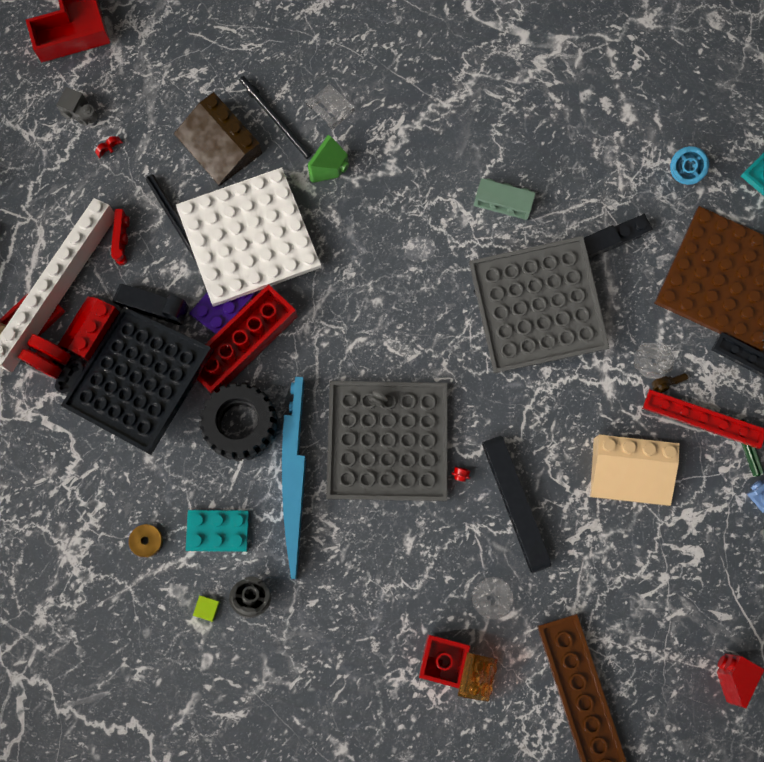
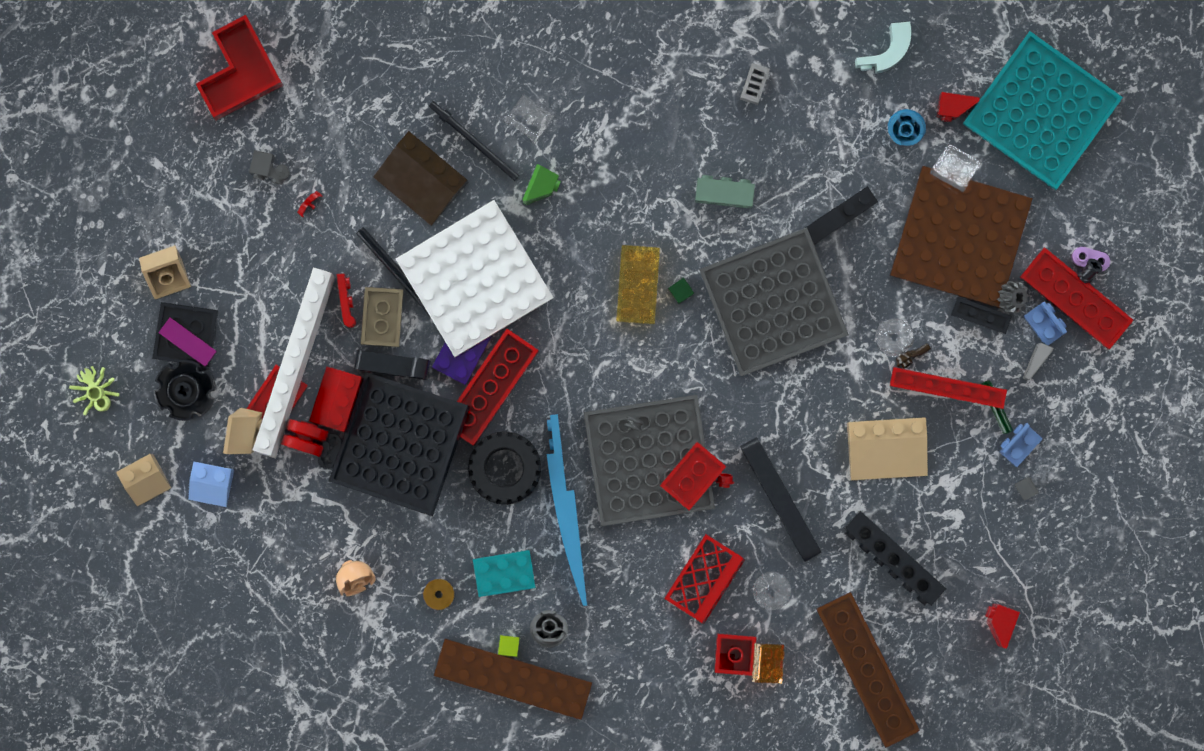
camera: 10 degrees left, 10 degrees up
(60, 508) = (353, 577): none -> light nougat cylinder
(151, 258) = (382, 317): none -> dark tan plate
(203, 646) = (513, 679): none -> reddish brown plate
(406, 269) = (638, 284): none -> clear yellow plate
(429, 462) = (693, 476): none -> red plate
(438, 584) = (718, 589): none -> red fence
(447, 283) = (681, 290): none -> dark green tile
(540, 120) = (749, 98): none -> light grey slope
(666, 625) = (934, 587): none -> black brick
(674, 108) = (900, 41): none -> light aqua arch
(732, 211) = (955, 167): none -> clear plate
(736, 156) = (954, 105): none -> red slope

